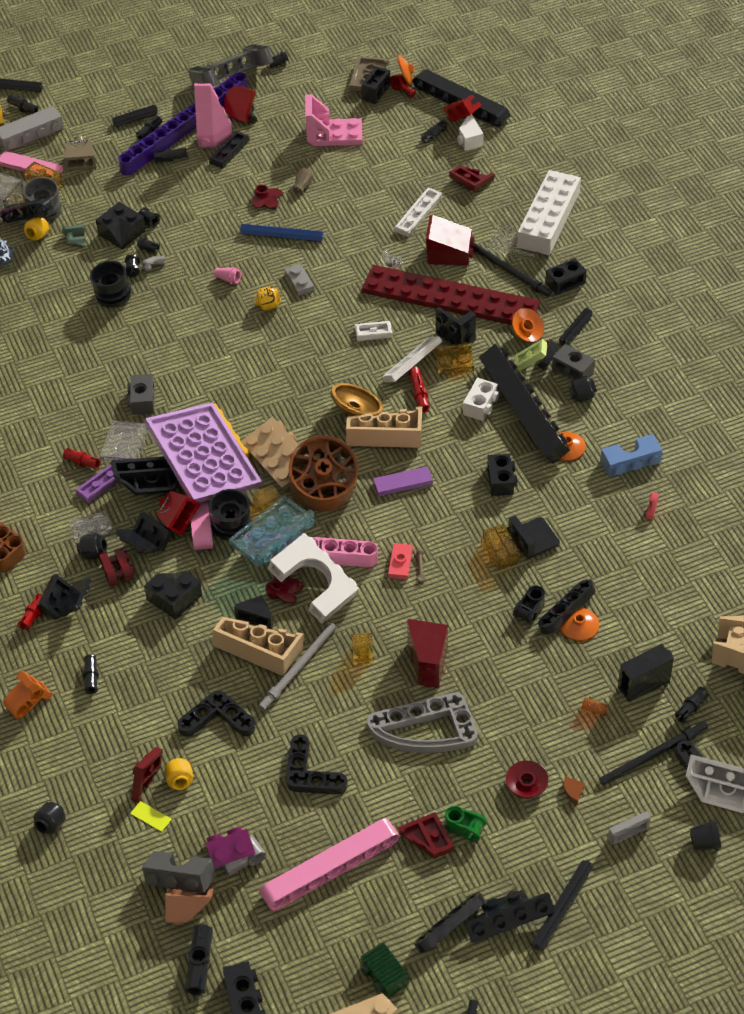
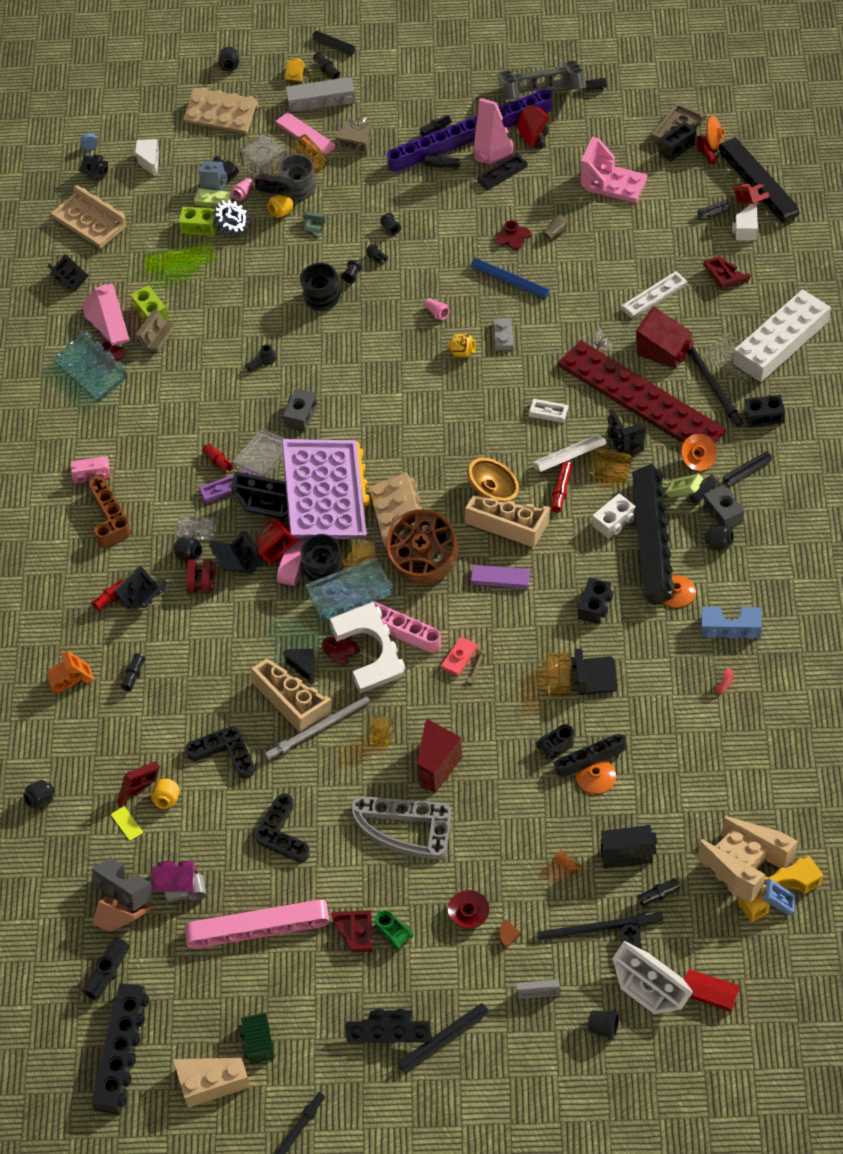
camera: 25 degrees right, 5 degrees up
(84, 359) = (265, 356): none -> black bar
(120, 225) = (359, 225): black slope -> none
(134, 115) = (428, 107): black axle -> none
(156, 260) = (375, 272): light grey arm -> none
(173, 592) = (238, 618): black slope -> none
(449, 922) = (334, 1016): black beam -> none

